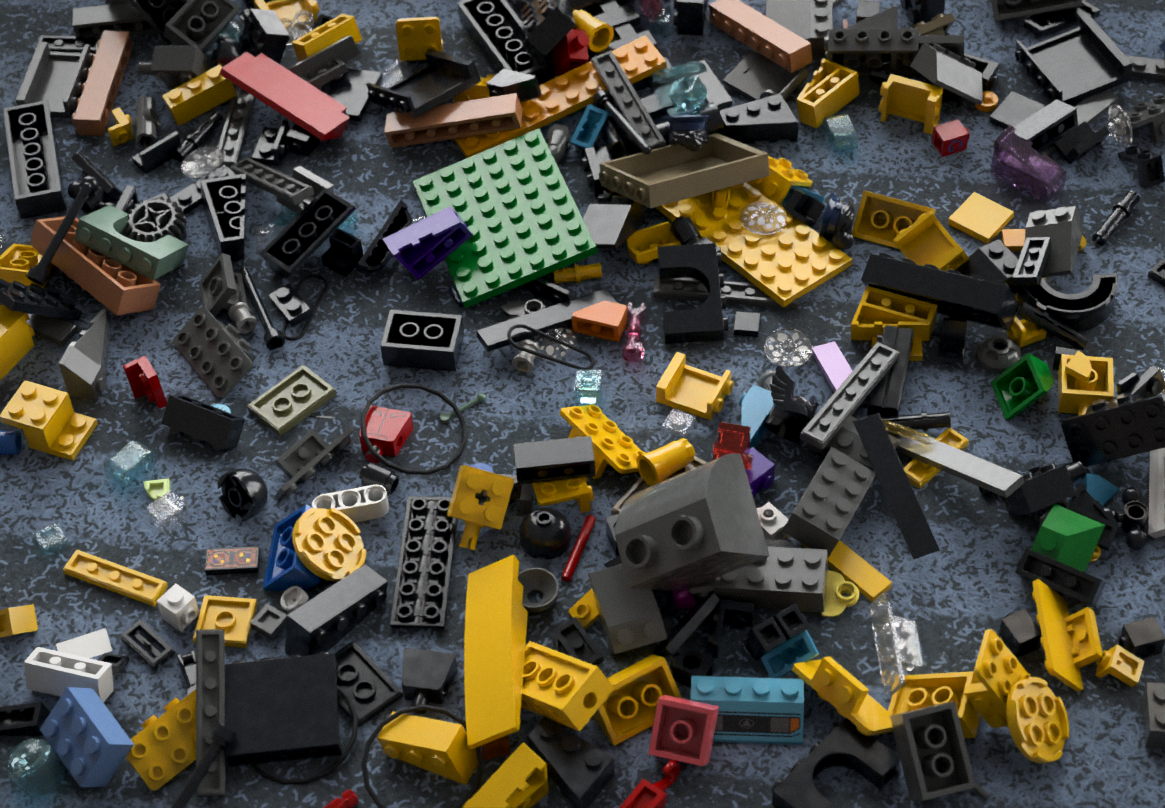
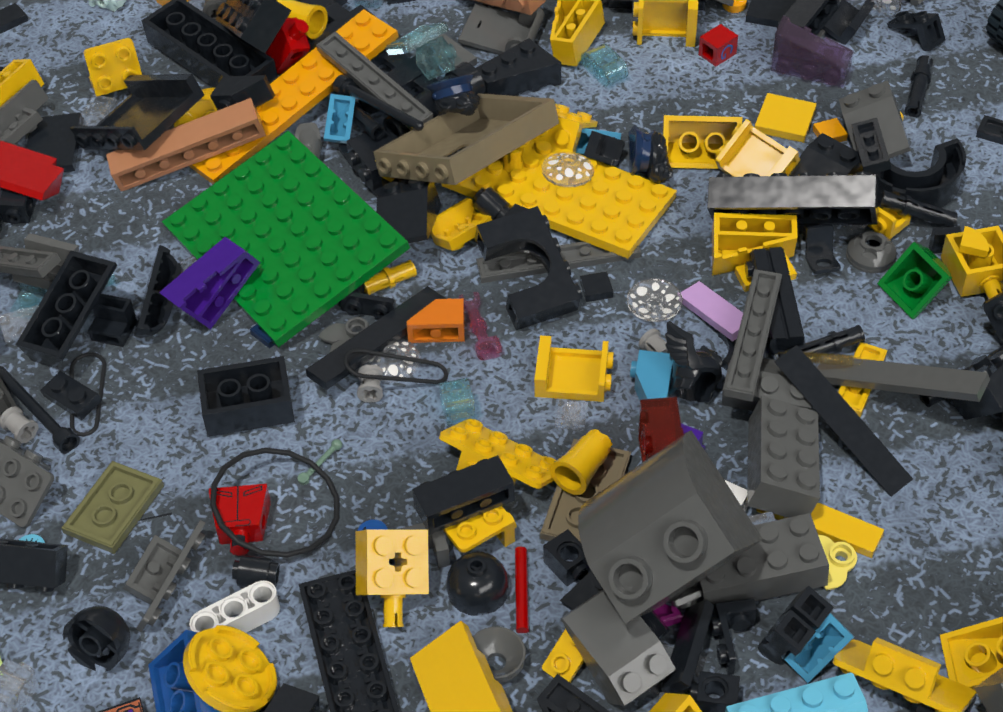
camera: 20 degrees left, 0 degrees up
(895, 644) = (921, 601): clear bracket -> none

